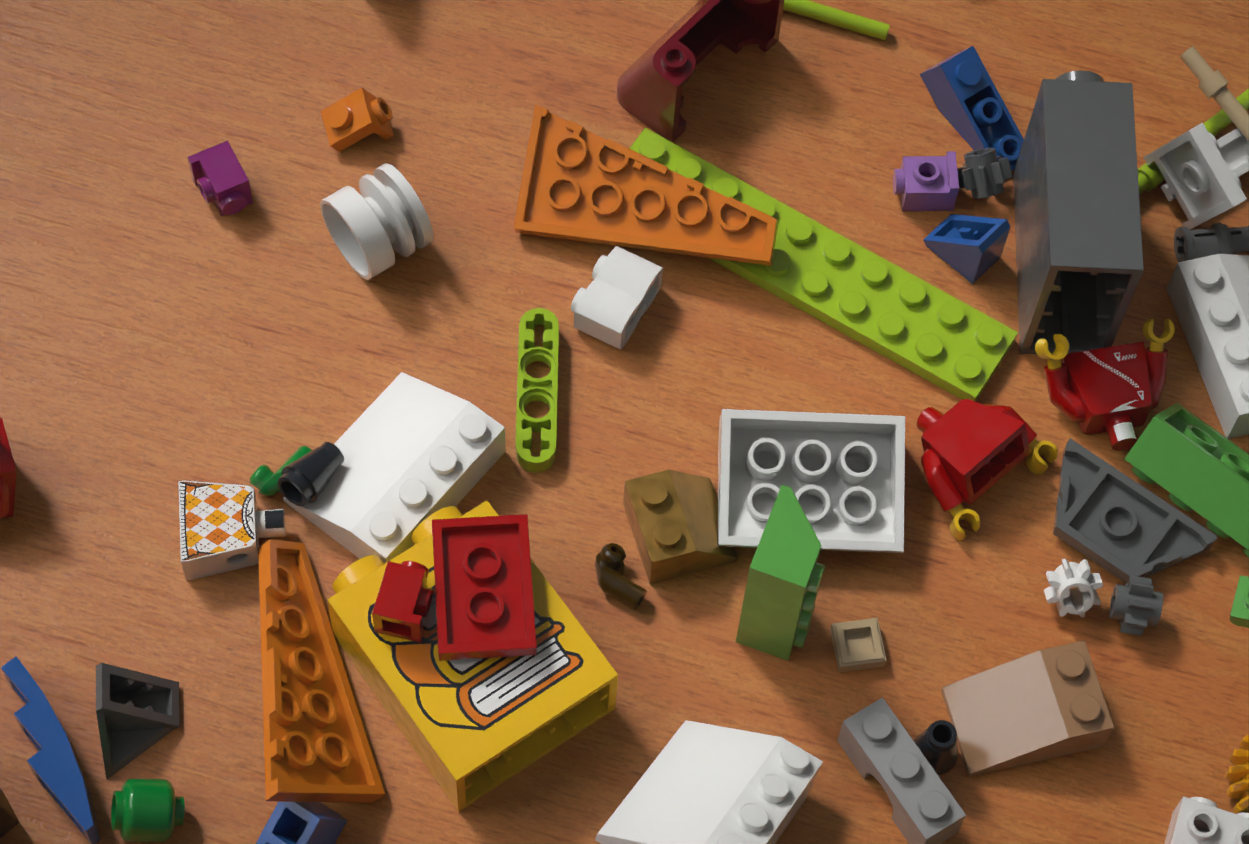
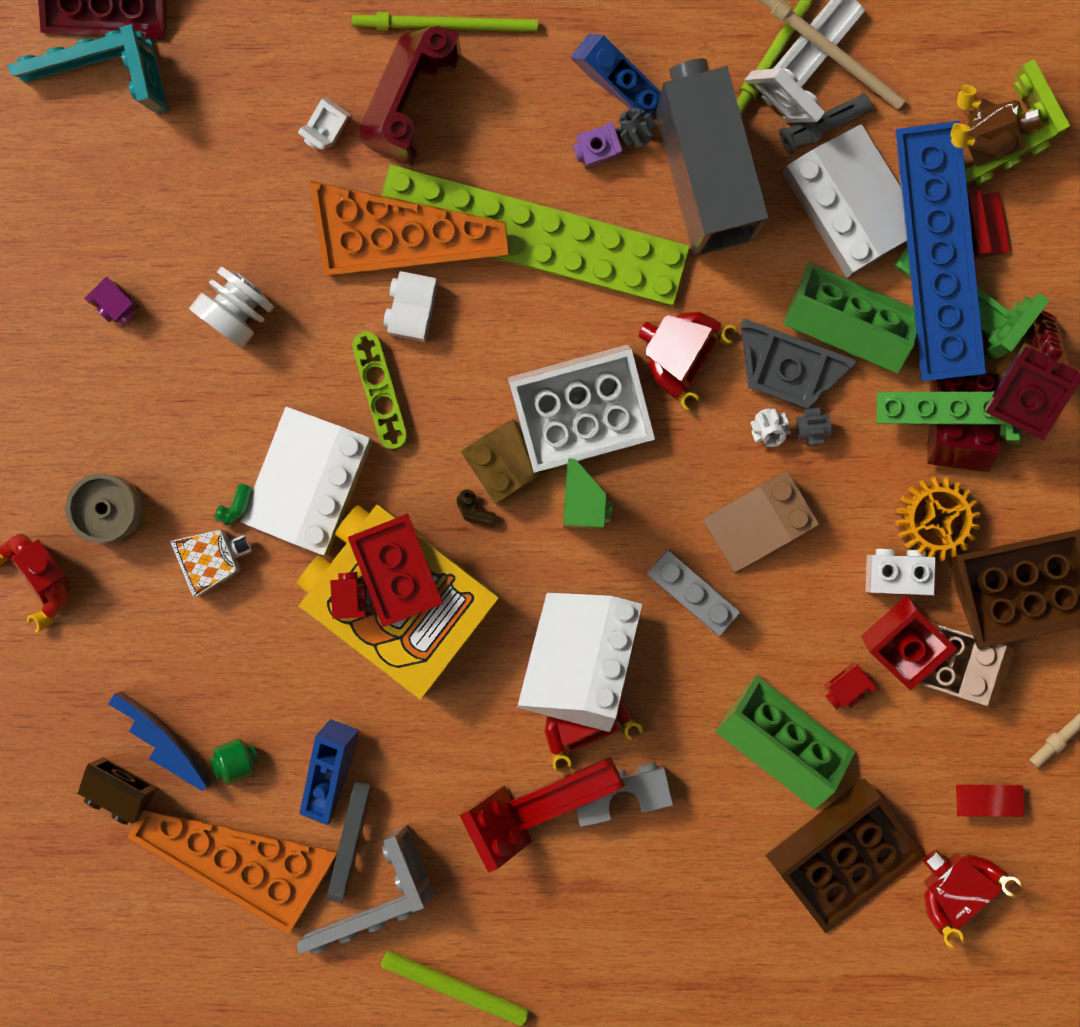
camera: 15 degrees left, 25 degrees up
(105, 416) = (85, 506): none -> dark tan wheel
(132, 713) = (201, 701): dark grey slope -> none
(309, 475) = (253, 508): black cone -> none
(309, 712) = (311, 668): orange wing -> none
(356, 118) = (188, 222): orange bracket -> none
(577, 60) = (324, 125): none -> white bracket
(858, 645) = (641, 506): tan tile -> none
(939, 746) = (700, 565): black cone -> none
(969, 243) = (636, 185): blue slope -> none
(1108, 386) = (760, 269): red torso -> none

